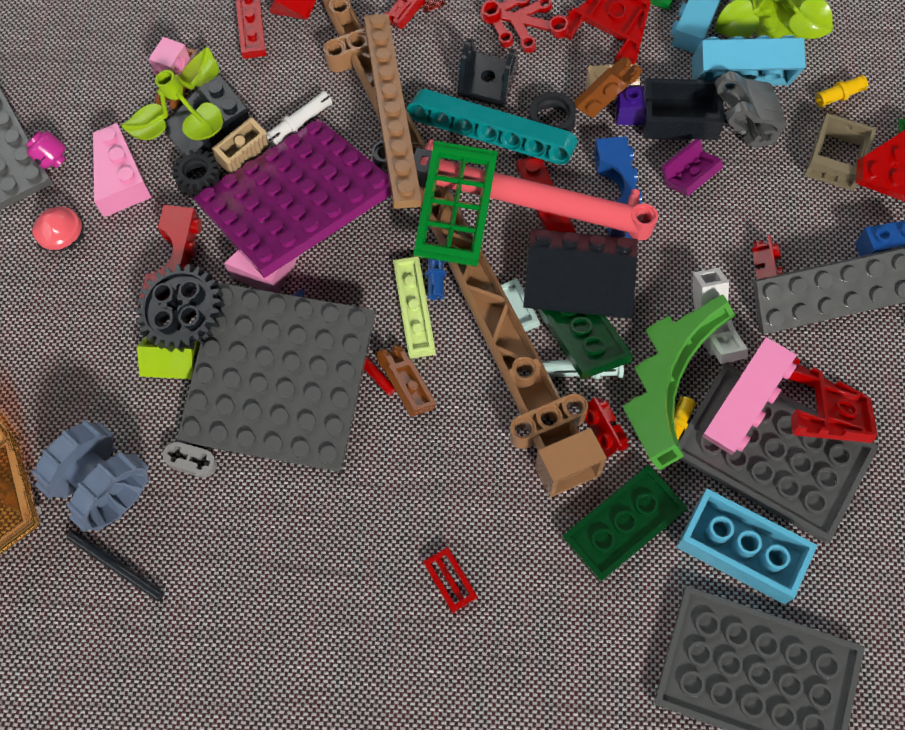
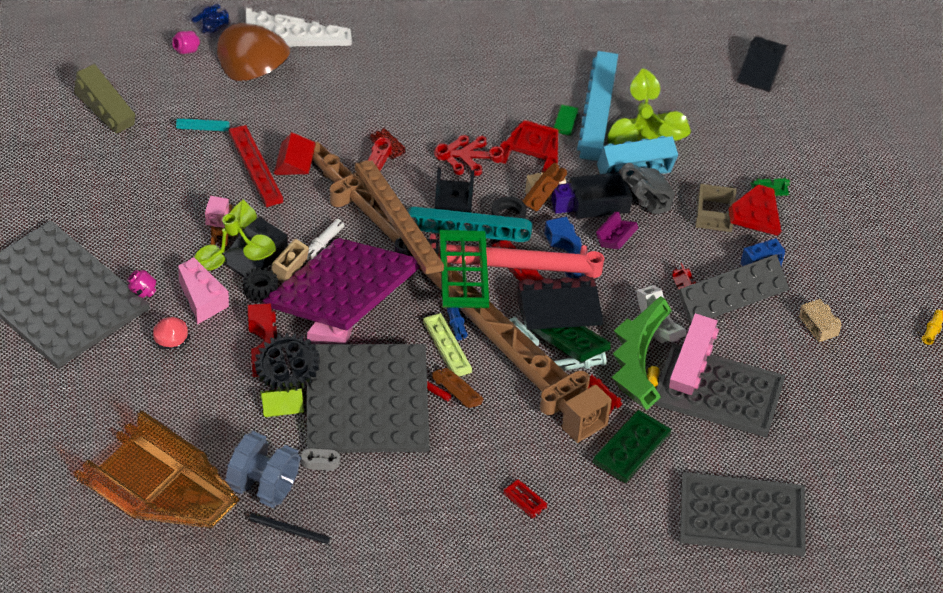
camera: 20 degrees left, 20 degrees down
(747, 546) = (714, 442): medium azure brick -> none
(841, 91) = (707, 170): yellow pin -> none
(841, 410) = (750, 358): red wing -> none

